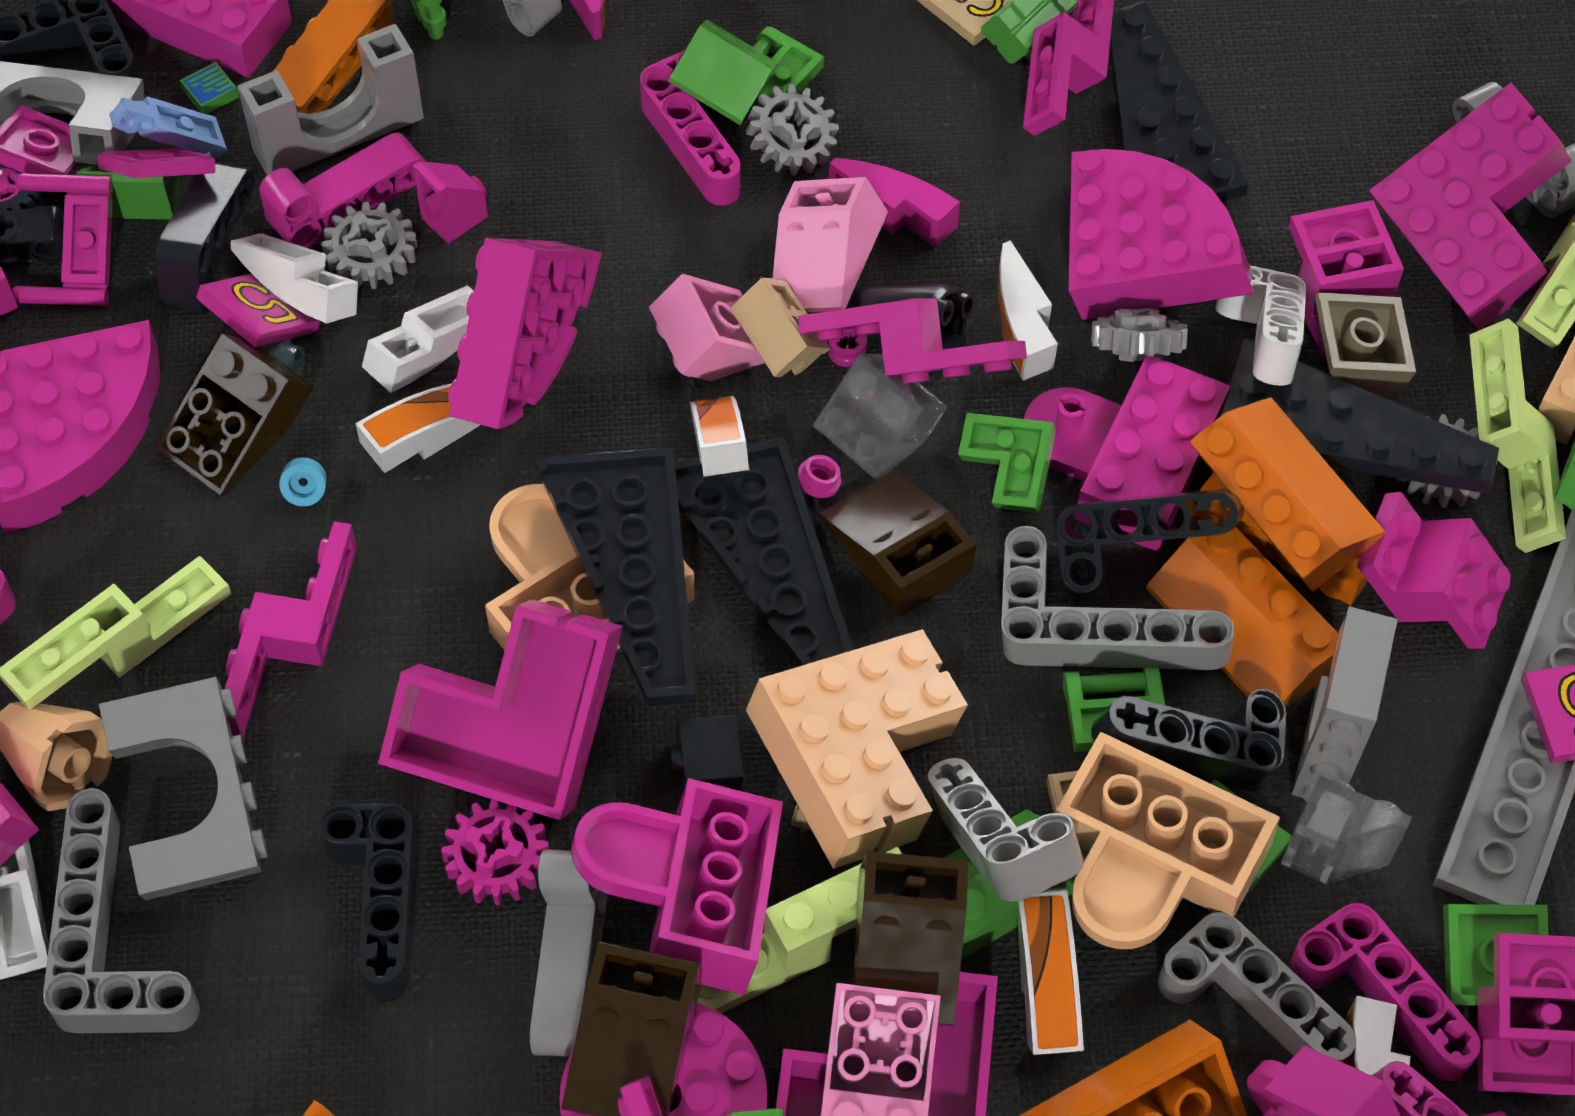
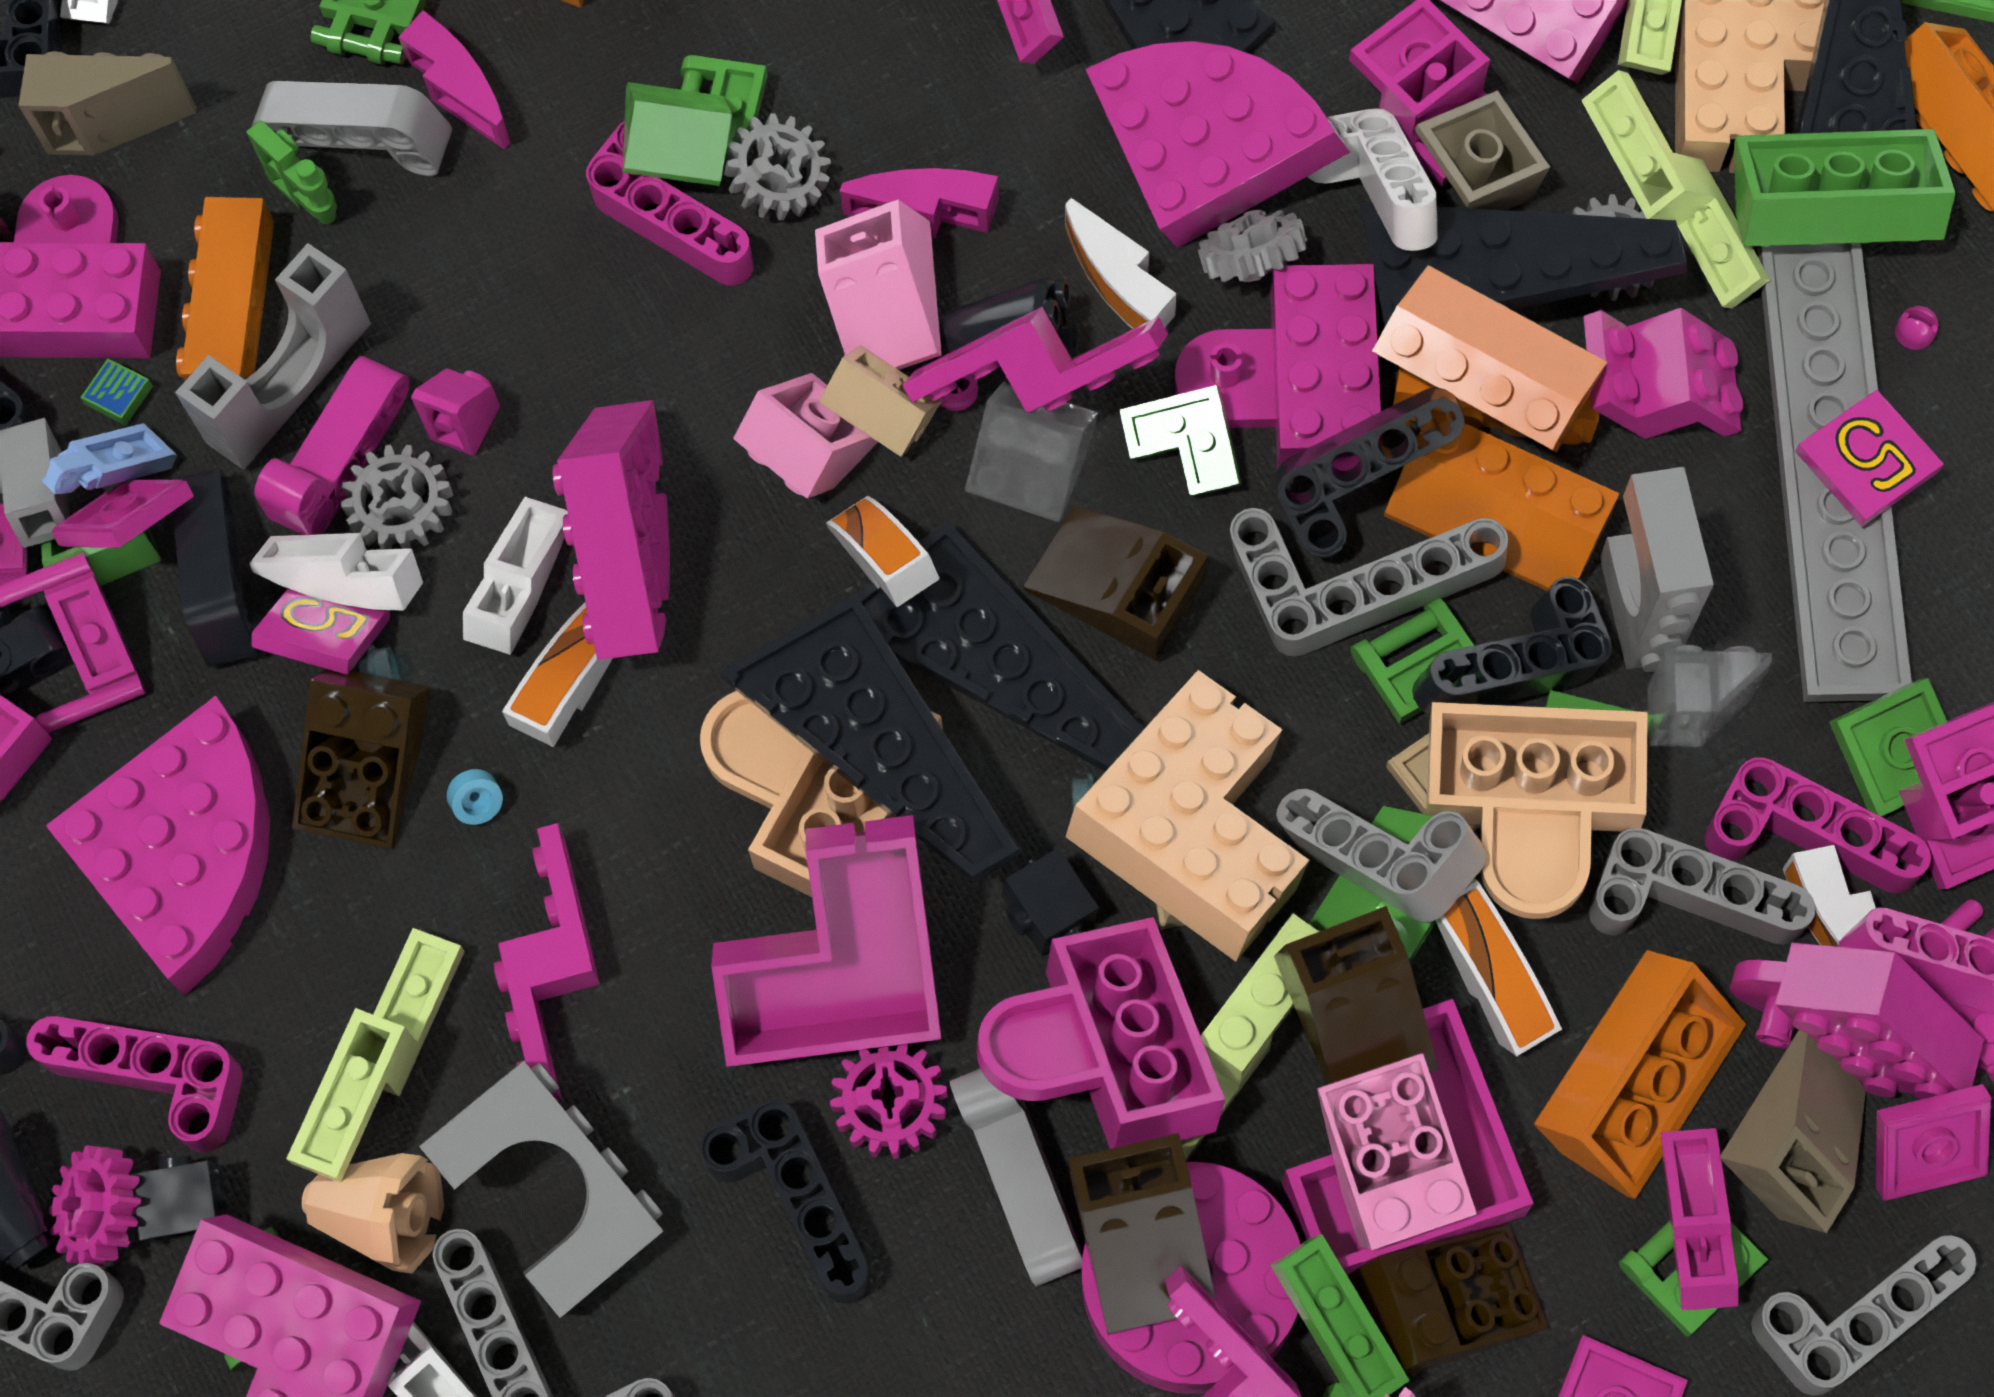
camera: 20 degrees left, 10 degrees up
(819, 476) = (1004, 536): dark pink plate -> none

